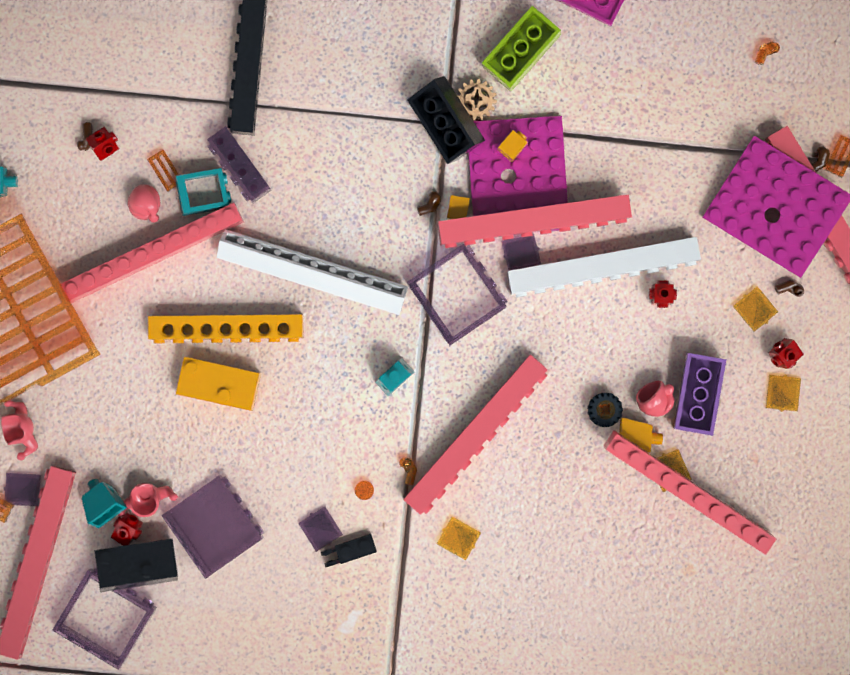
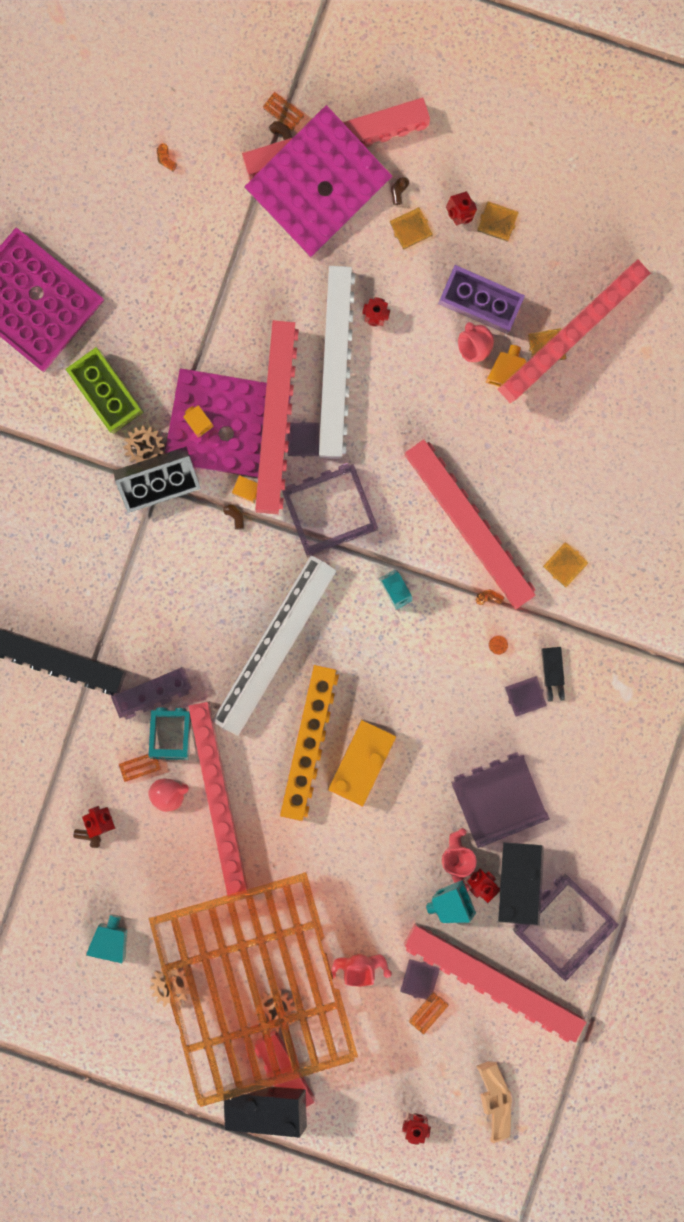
camera: 75 degrees left, 0 degrees up
(599, 408) = (476, 400): black wheel -> none

